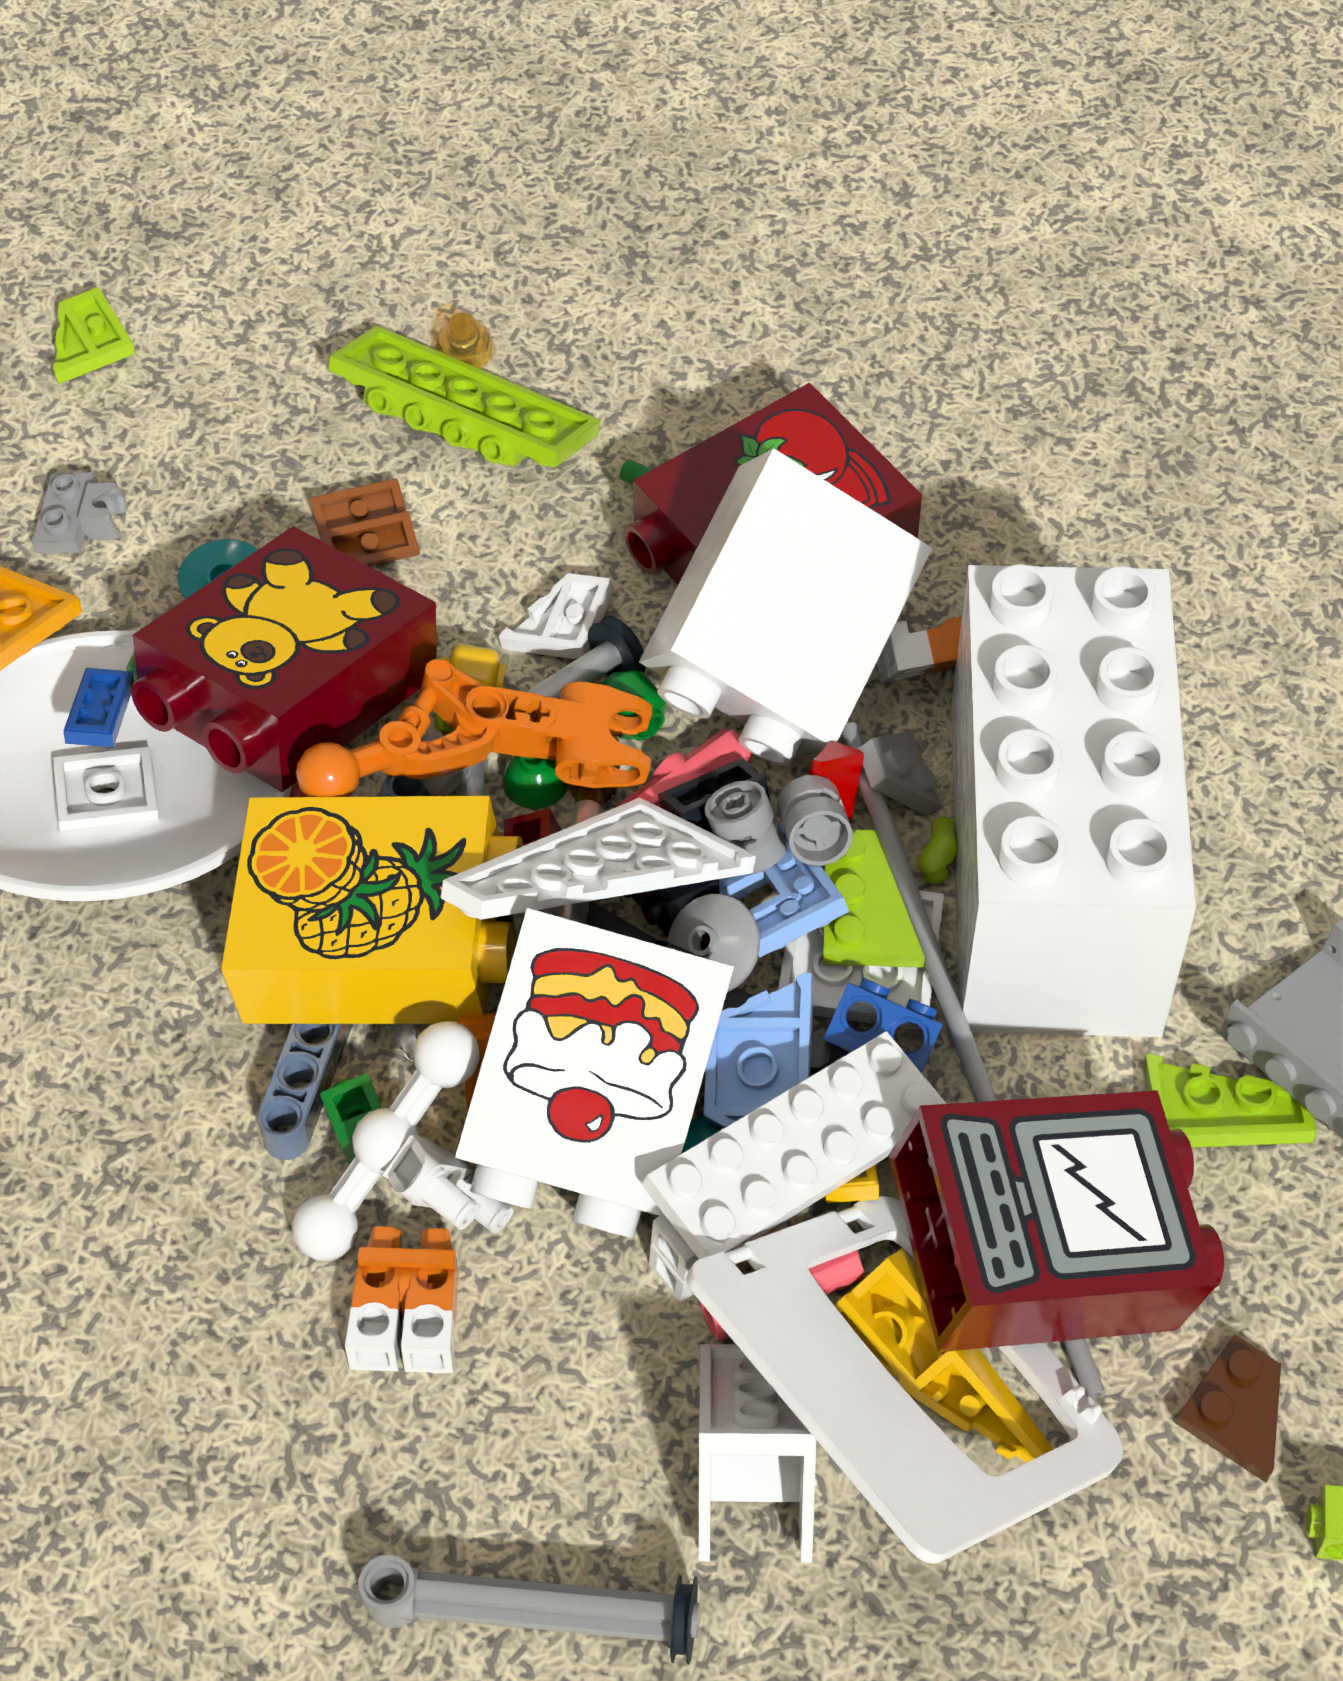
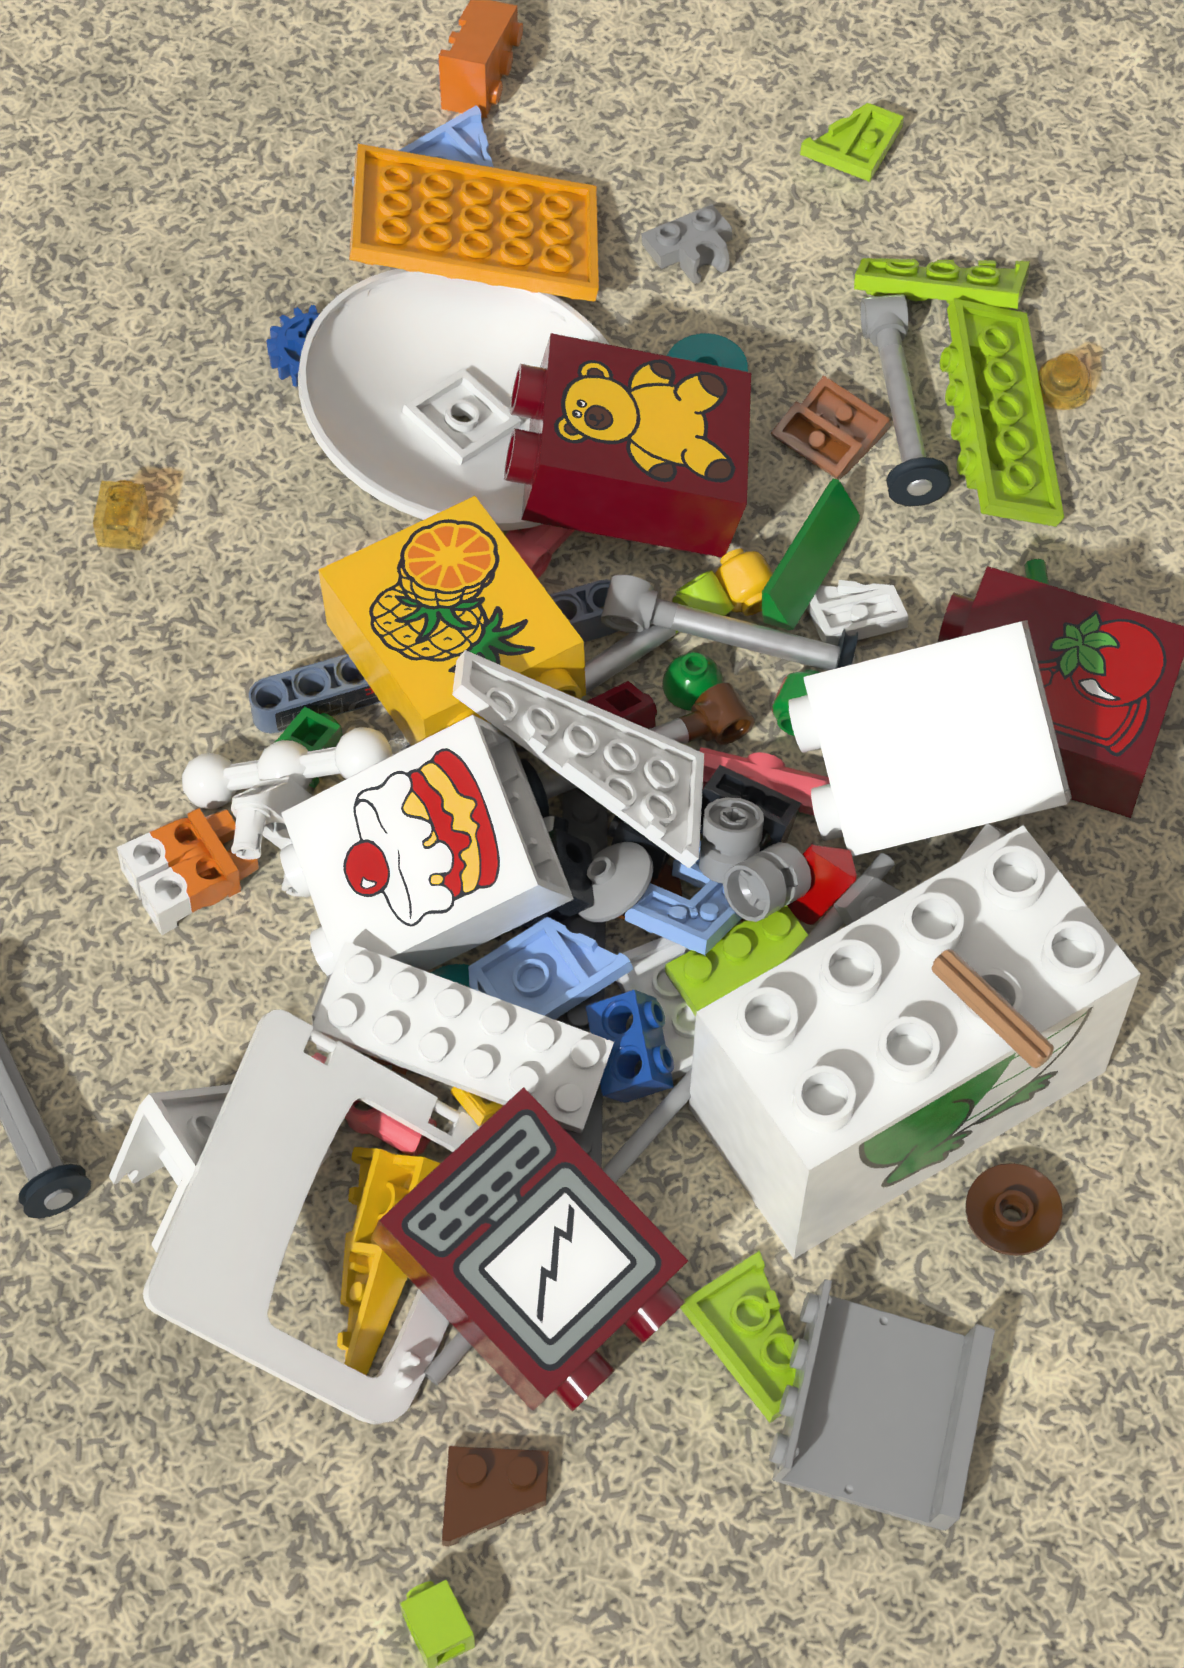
camera: 55 degrees right, 5 degrees up
(99, 707) = (498, 362): blue plate -> none
(291, 361) = (944, 281): none -> lime wing
(298, 422) = (918, 478): none -> piece
(486, 720) = (717, 667): orange piece -> none
(491, 616) = (809, 557): none -> green slope
(1149, 675) = (992, 1008): none -> medium nougat axle
(1239, 827) = (1017, 1189): none -> reddish brown dish

